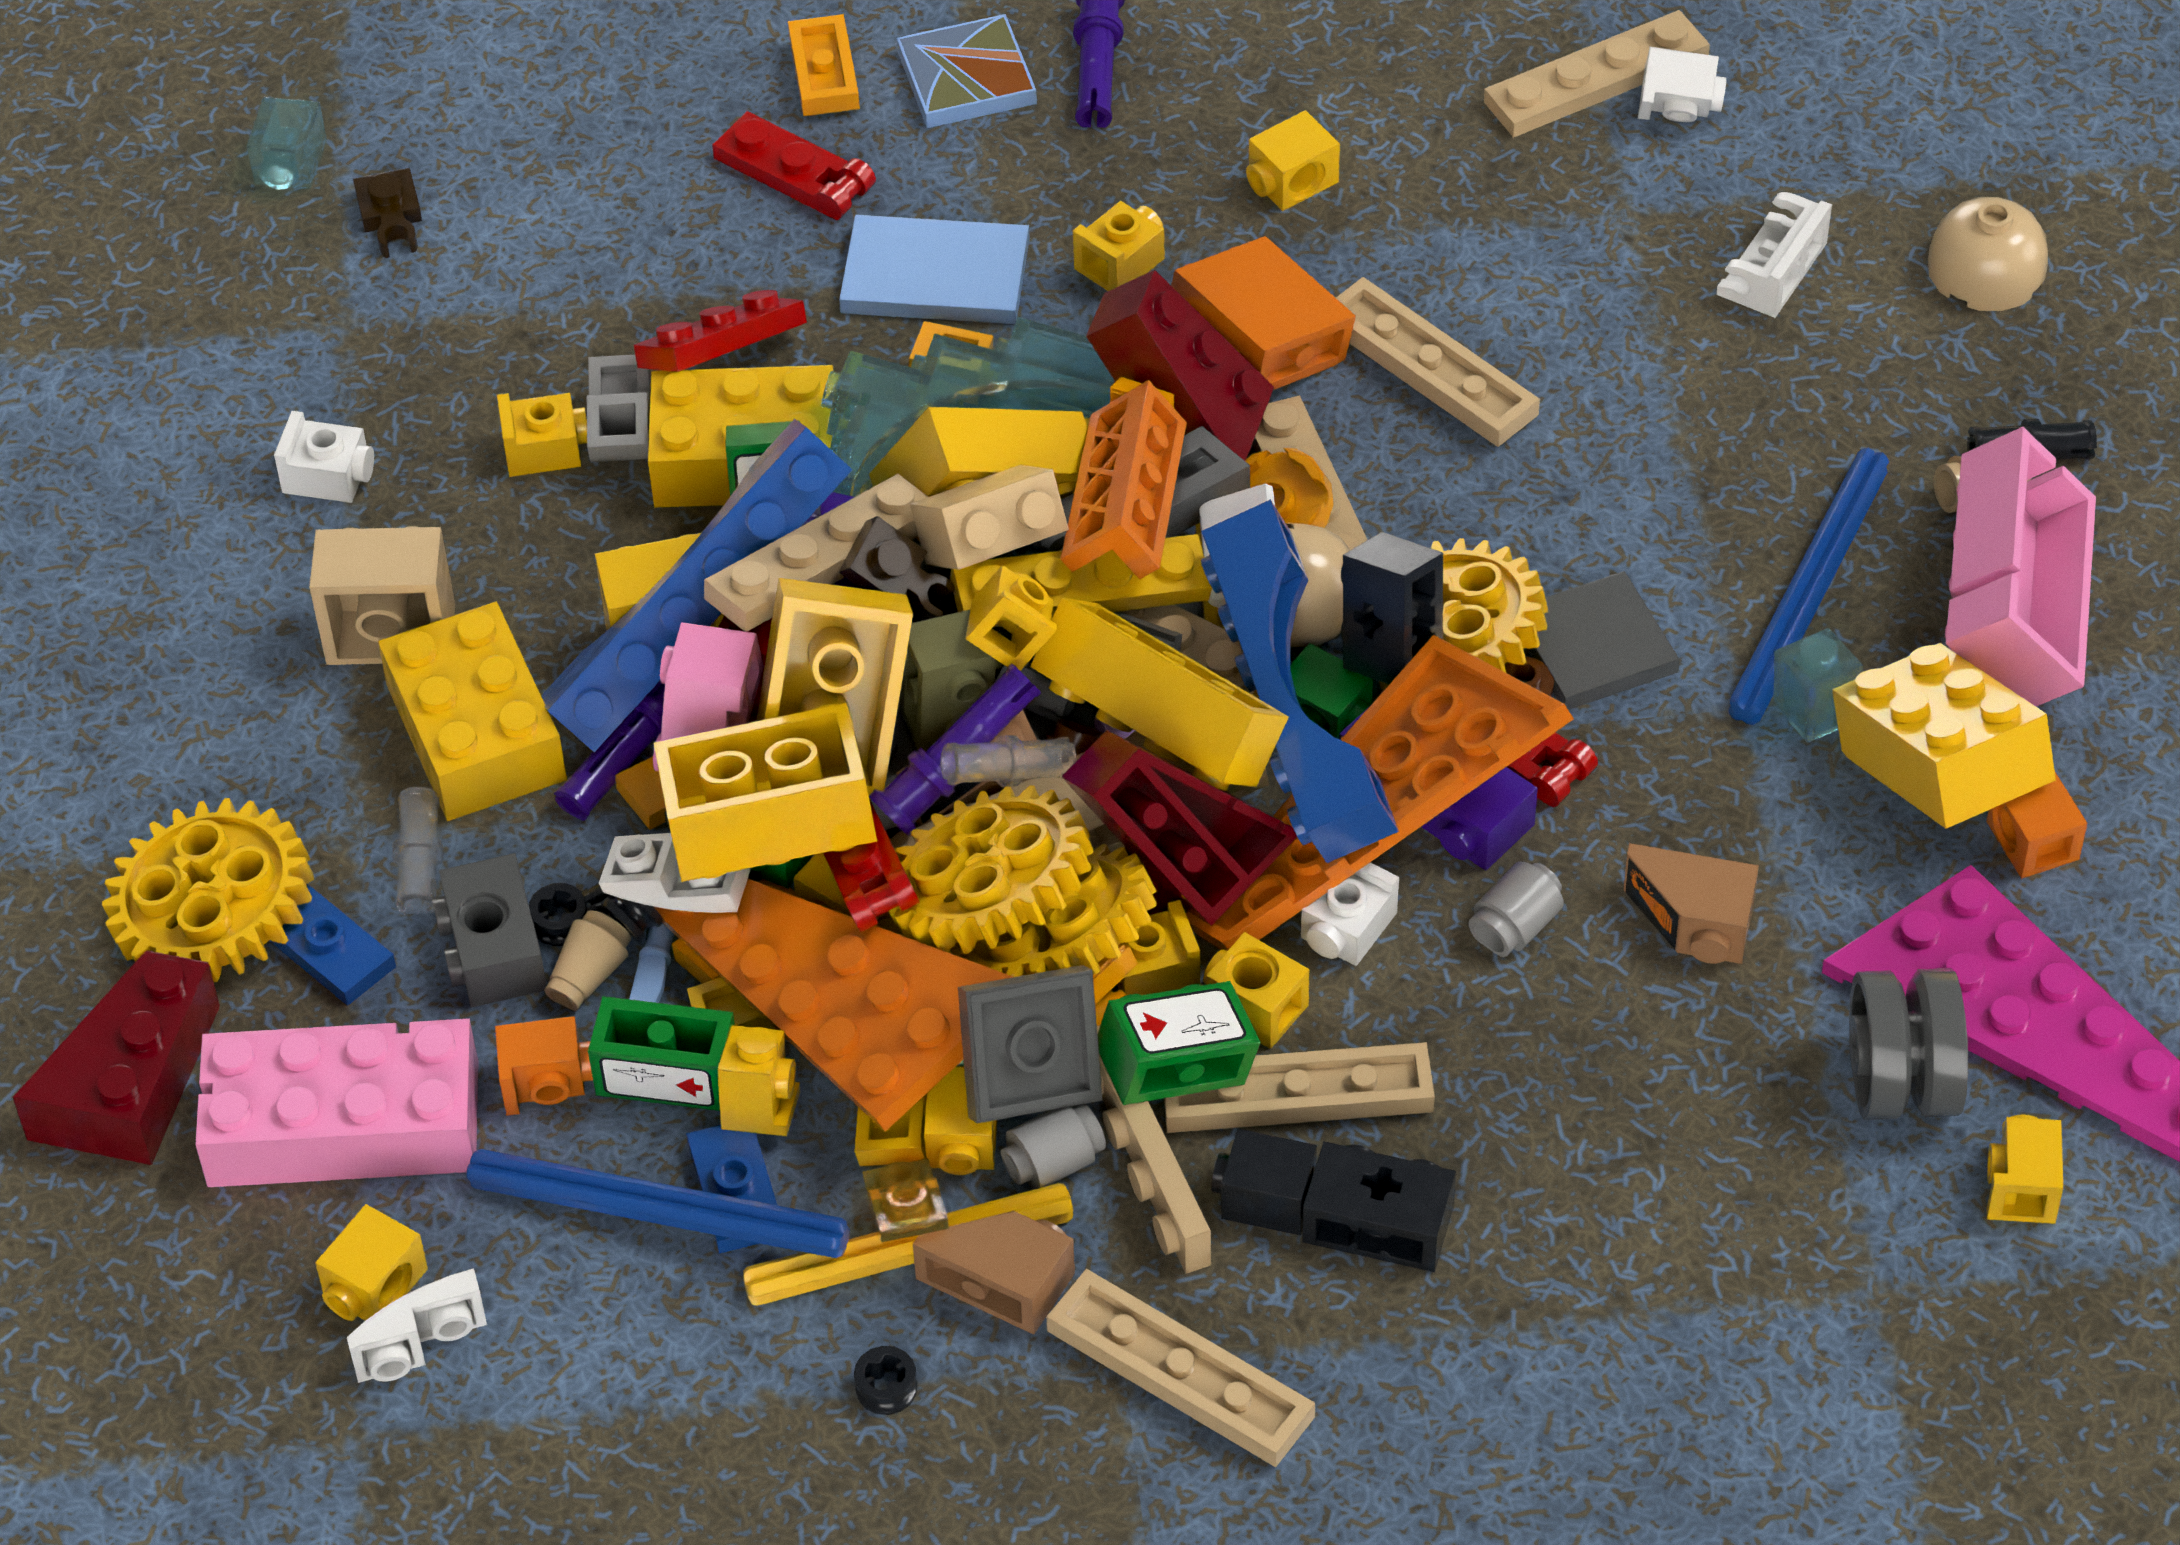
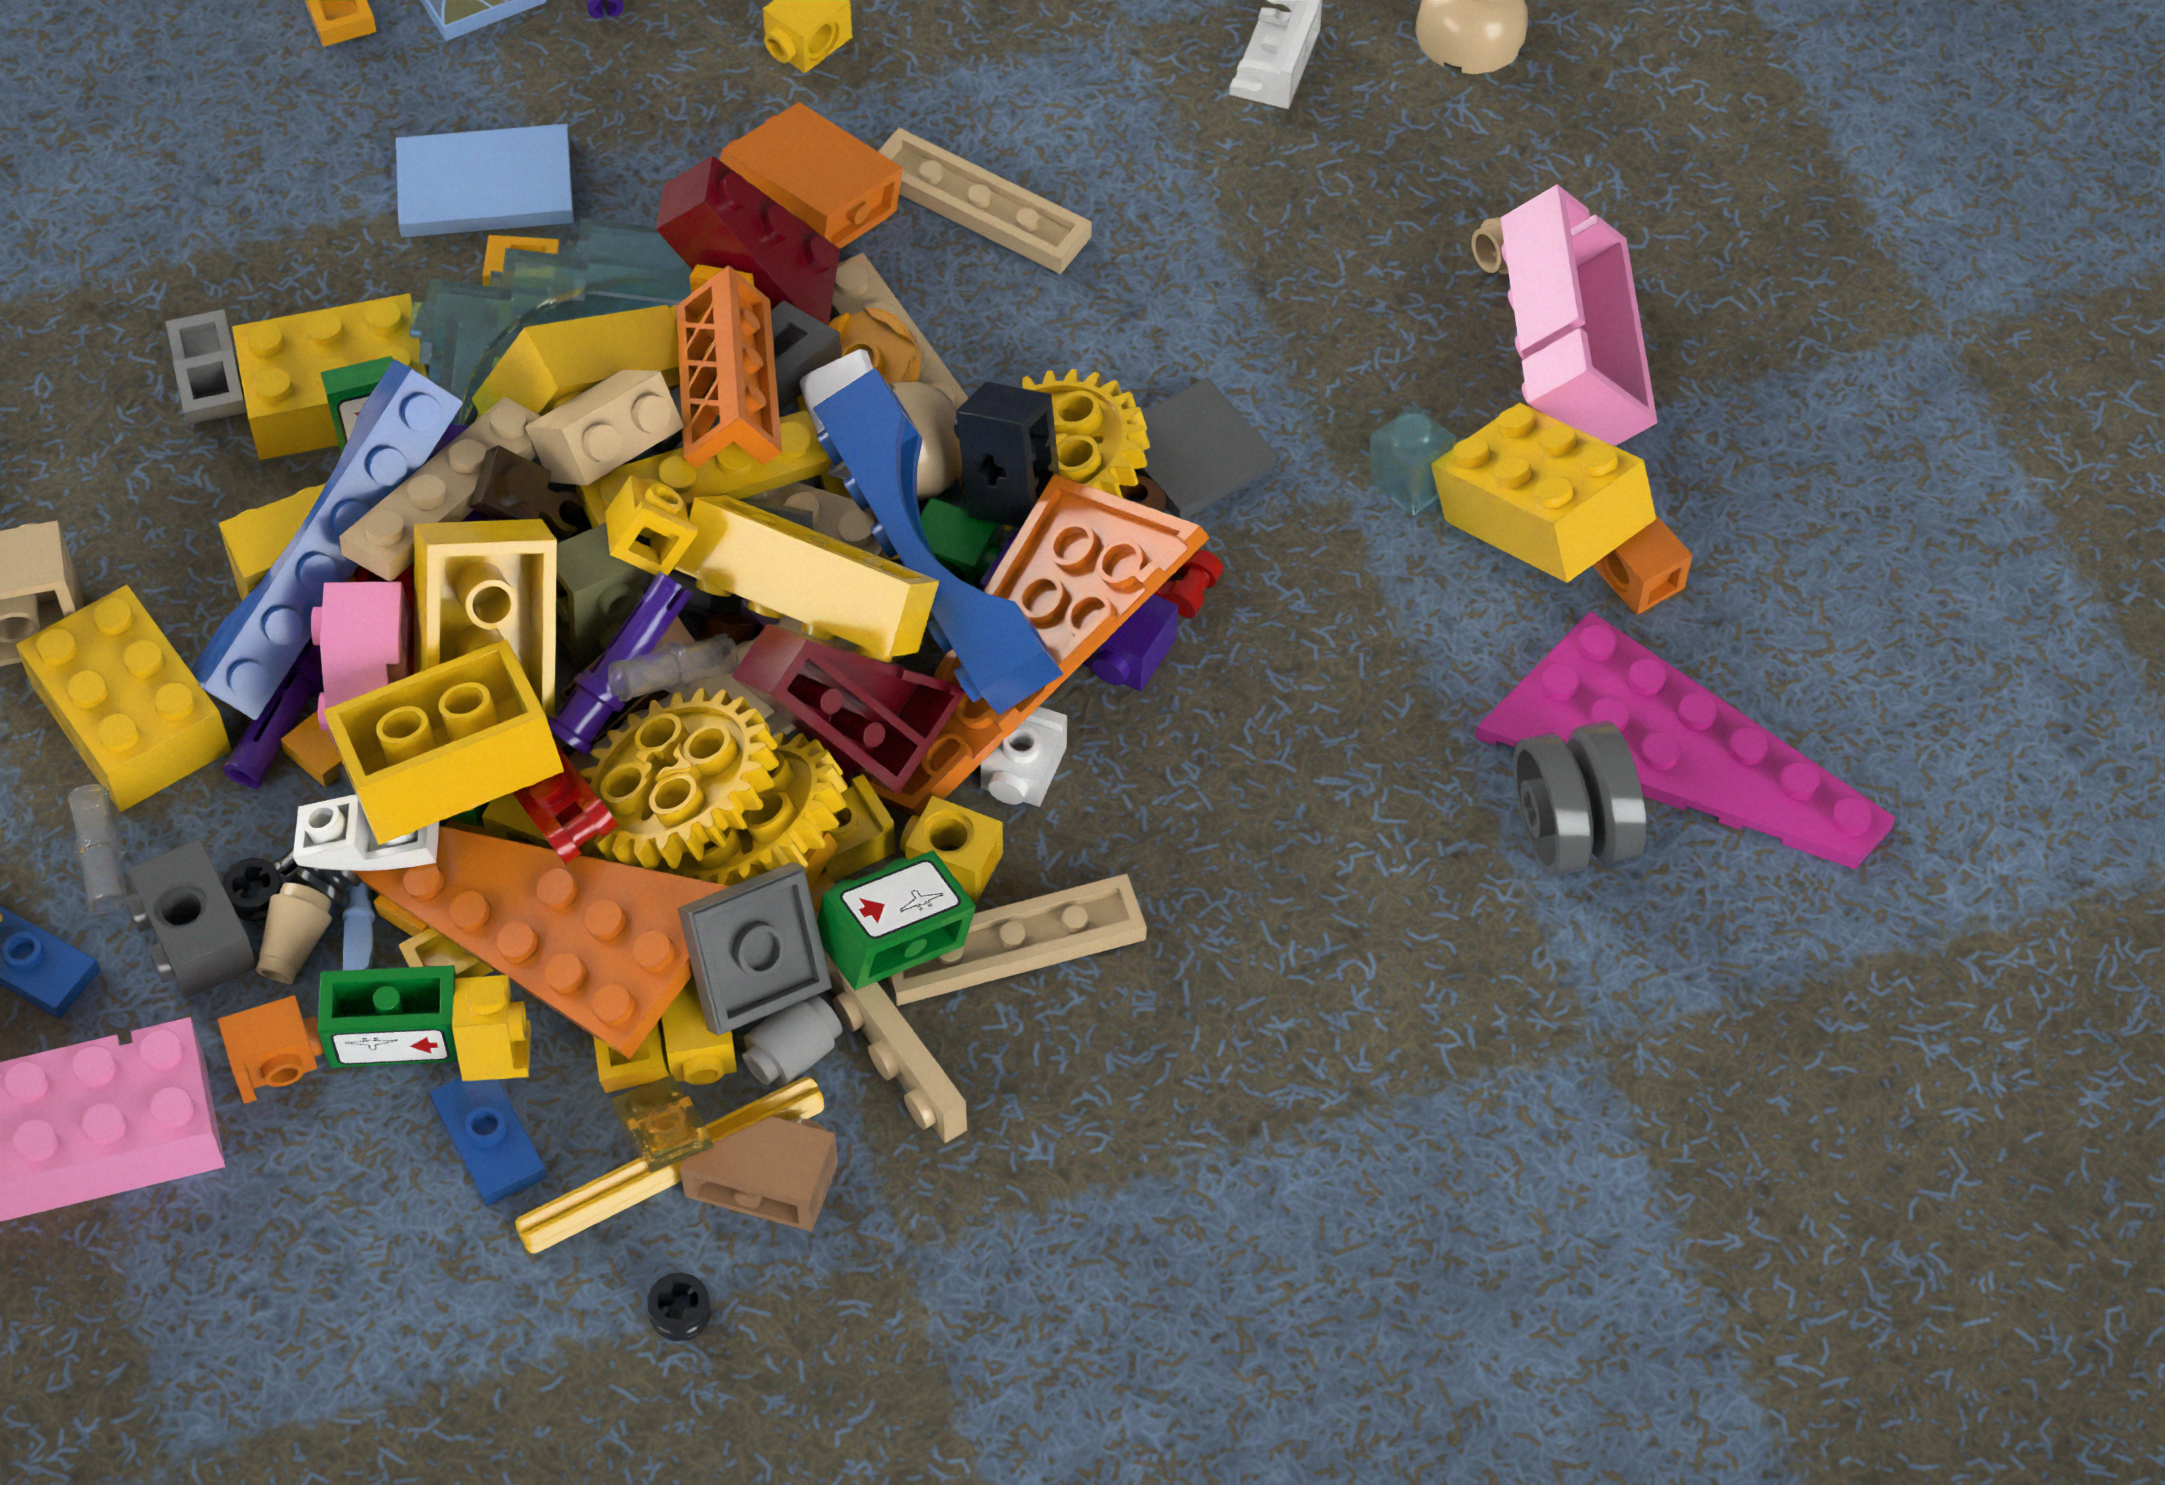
camera: 15 degrees left, 5 degrees up
(370, 1265) = (141, 1288): yellow brick -> none
(390, 1339) = (180, 1359): white slope -> none
(541, 433) = (133, 404): yellow brick -> none
(659, 1203) = (416, 1169): blue axle -> none
(719, 331) = (289, 276): red plate -> none
(793, 165) = (323, 97): red plate -> none
(1126, 239) = (665, 124): yellow brick -> none
(1181, 1367) = (963, 1240): tan plate -> none
(1265, 1181) = (1004, 1039): black brick -> none
(1379, 1206) = (1092, 1063): black brick -> none
(1516, 908) = (1181, 725): light grey brick -> none
(1694, 900) = (1345, 689): medium nougat slope -> none
(1809, 582) = (1379, 364): blue axle -> none
(2026, 1171) = (1710, 899): yellow brick -> none
(2060, 439) = (1584, 185): black pin -> none

